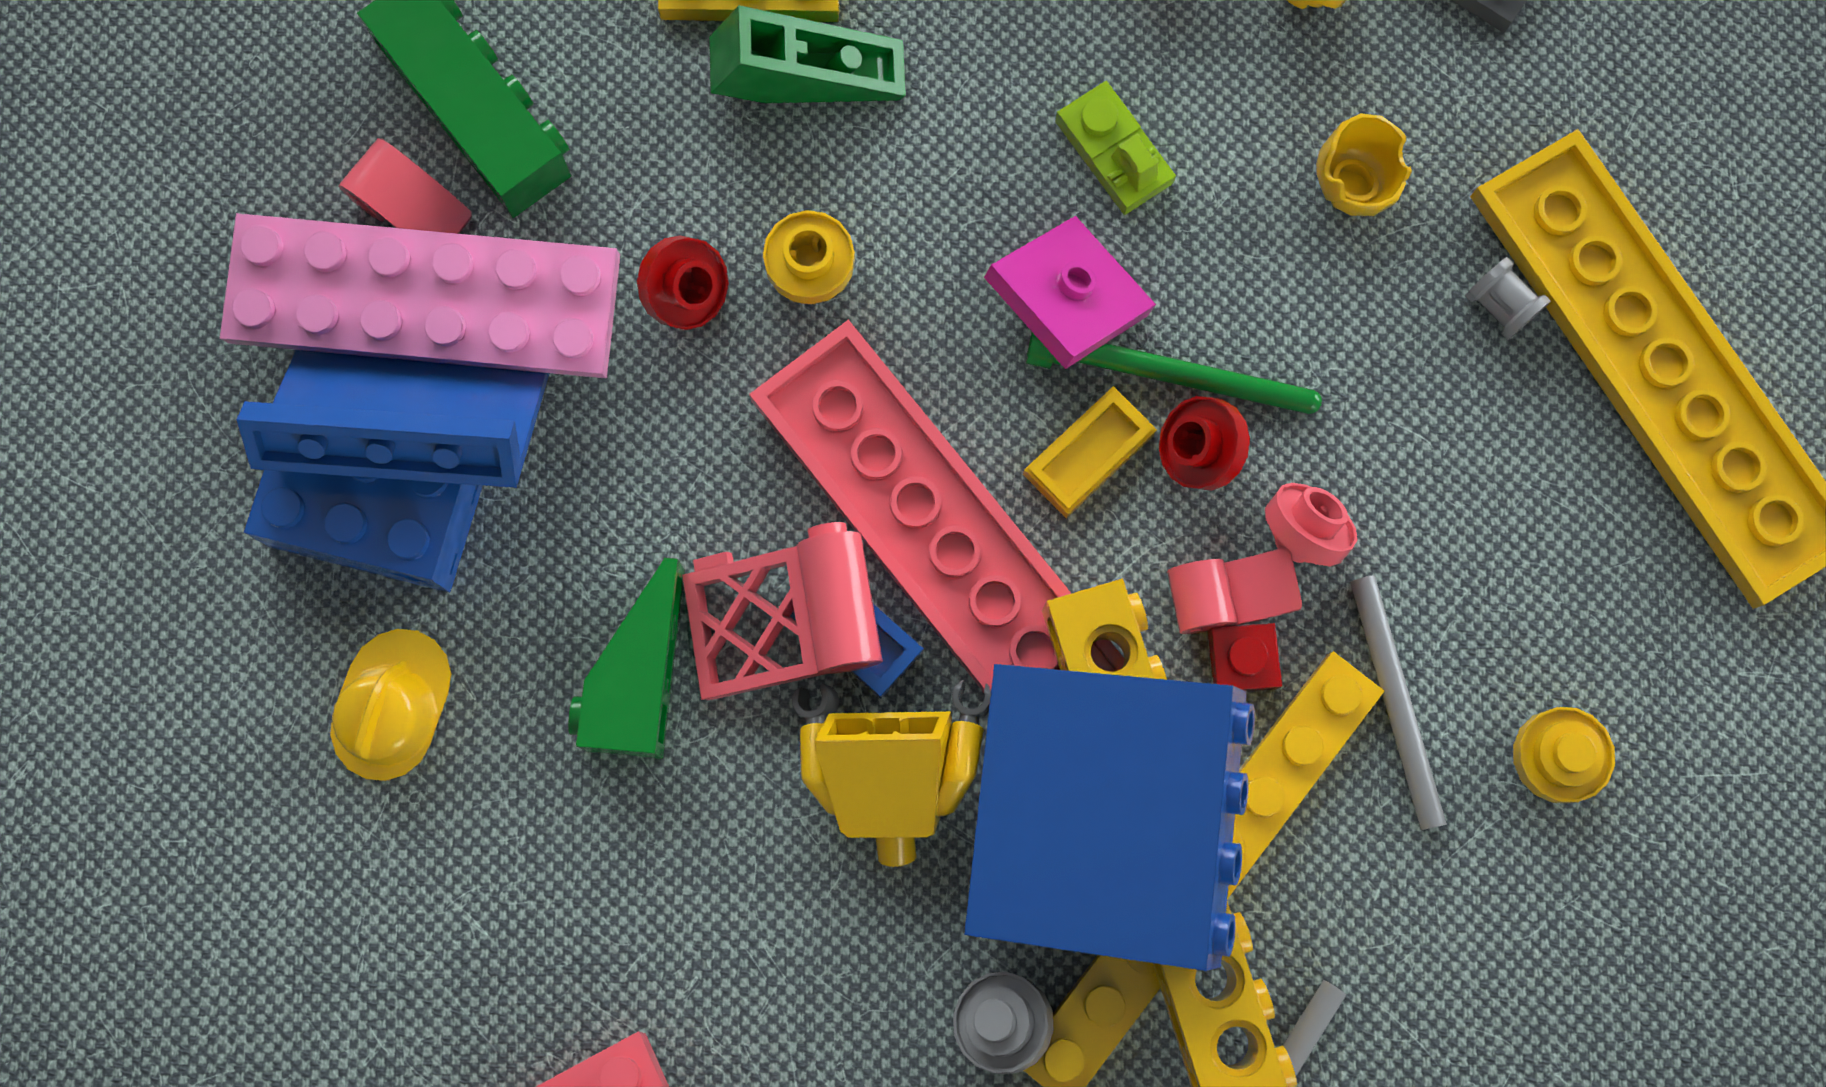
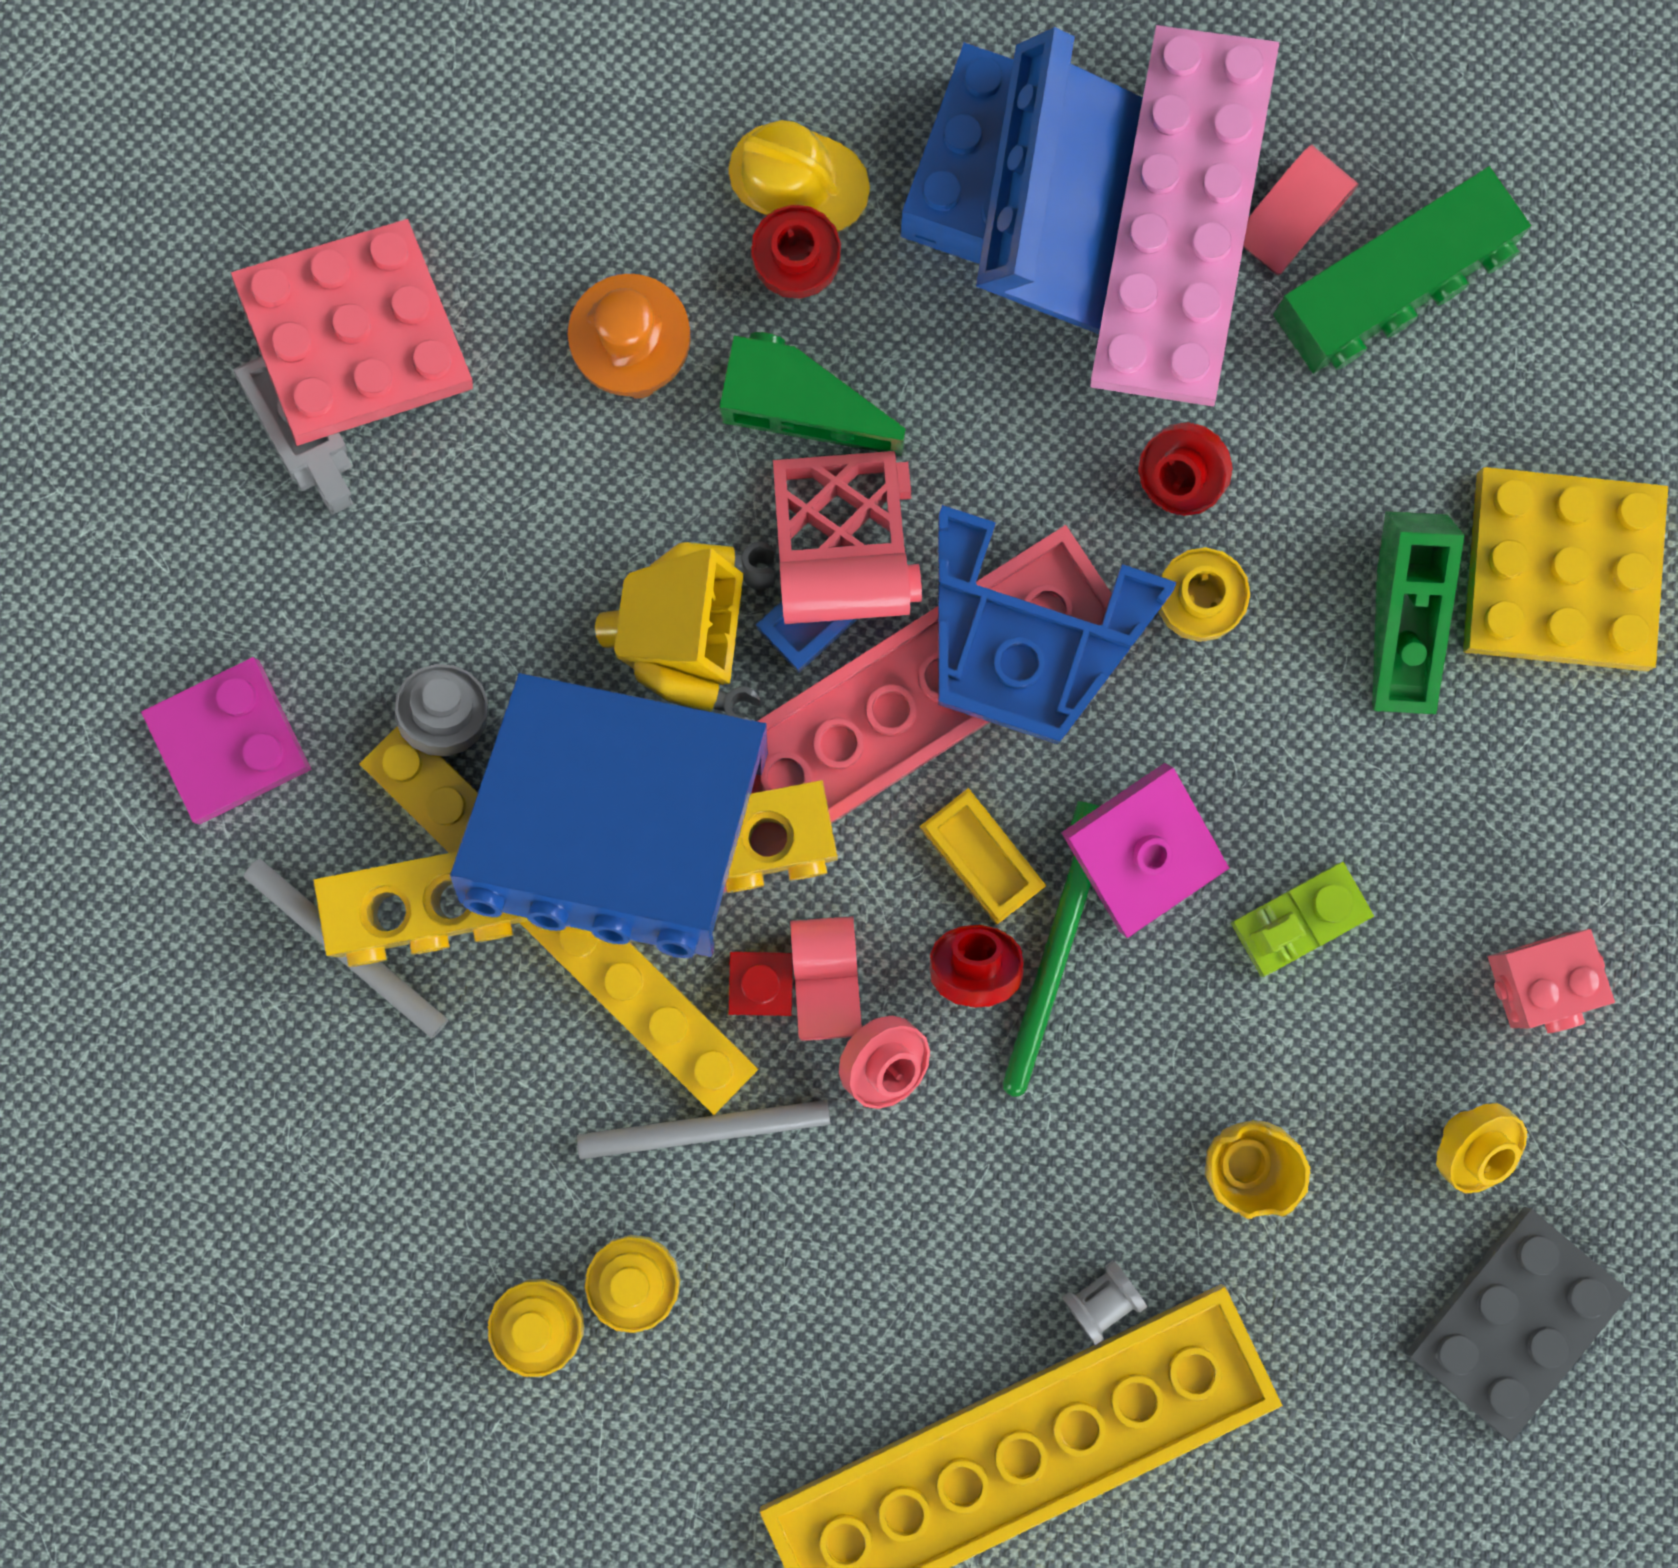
camera: 100 degrees right, 5 degrees up
(476, 693) = (796, 251): none -> red plate
(575, 866) = (629, 335): none -> orange plate
(894, 426) = (1021, 659): none -> blue wing
(1623, 849) = (535, 1327): none -> yellow plate

